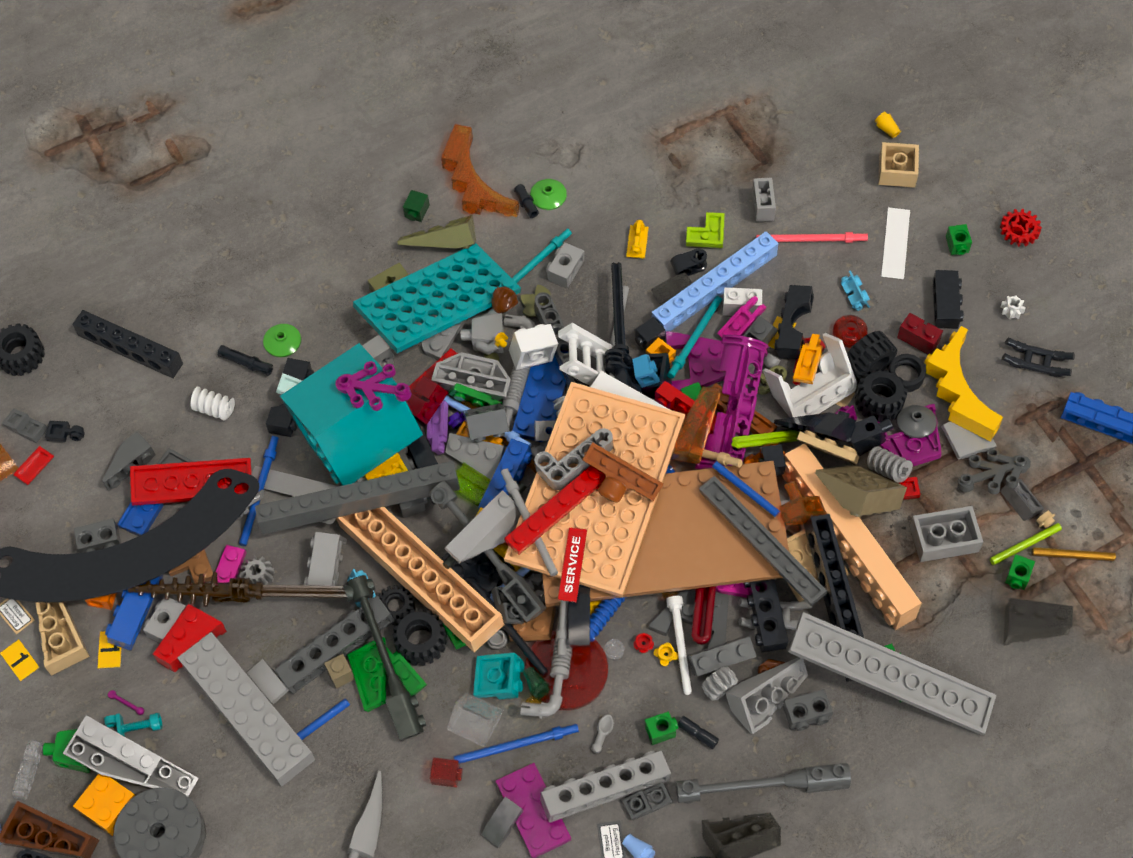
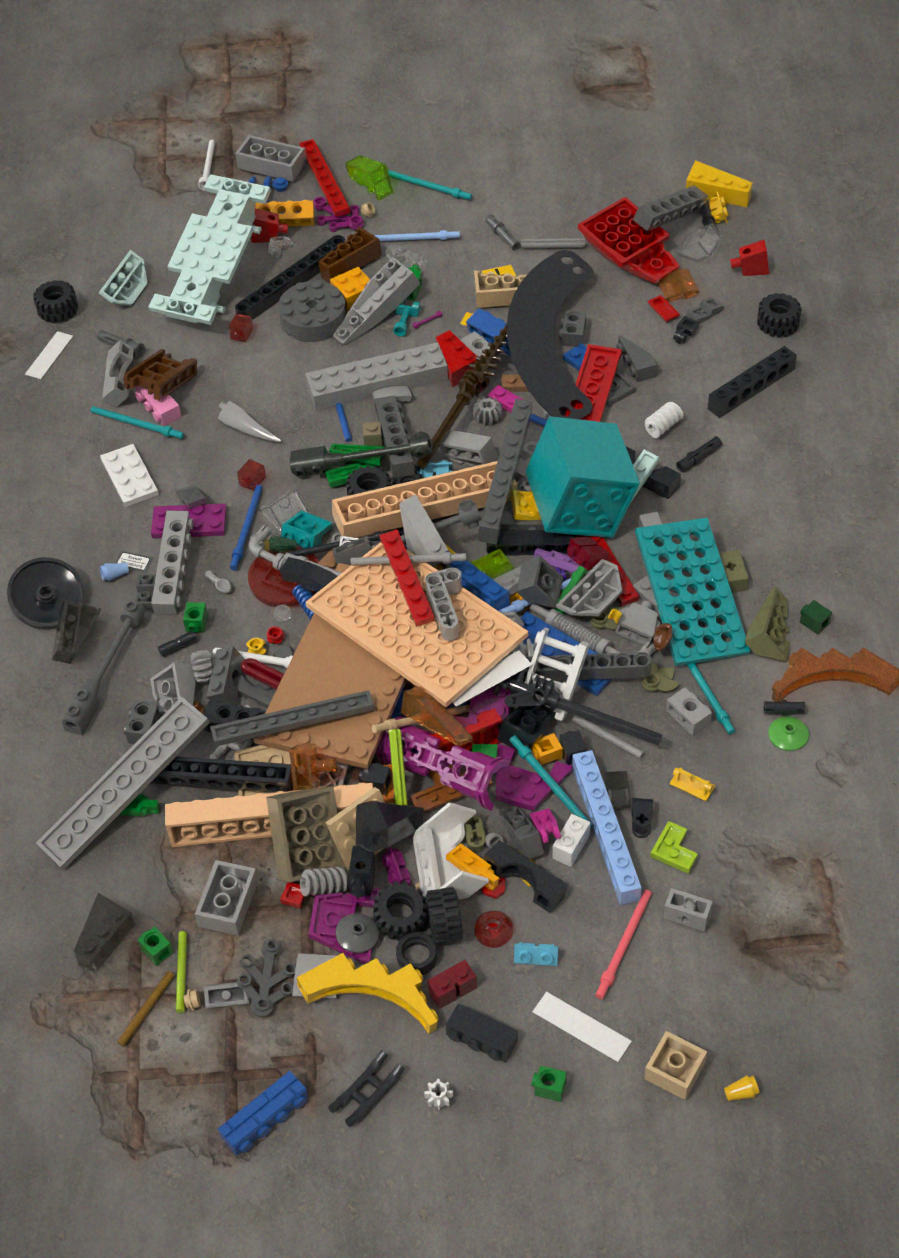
camera: 115 degrees right, 10 degrees down
(285, 346) = (710, 486): bright green dish -> none
(347, 383) = (587, 450): magenta plant -> none
(533, 346) = (595, 630): white brick -> none
(572, 564) = (353, 577): red sticker -> none
(620, 475) = (405, 622): dark orange plate -> none
(645, 370) = (523, 711): dark azure brick -> none
(746, 489) = (348, 727): blue bar -> none
(1020, 228) = (535, 1167): red gear -> none

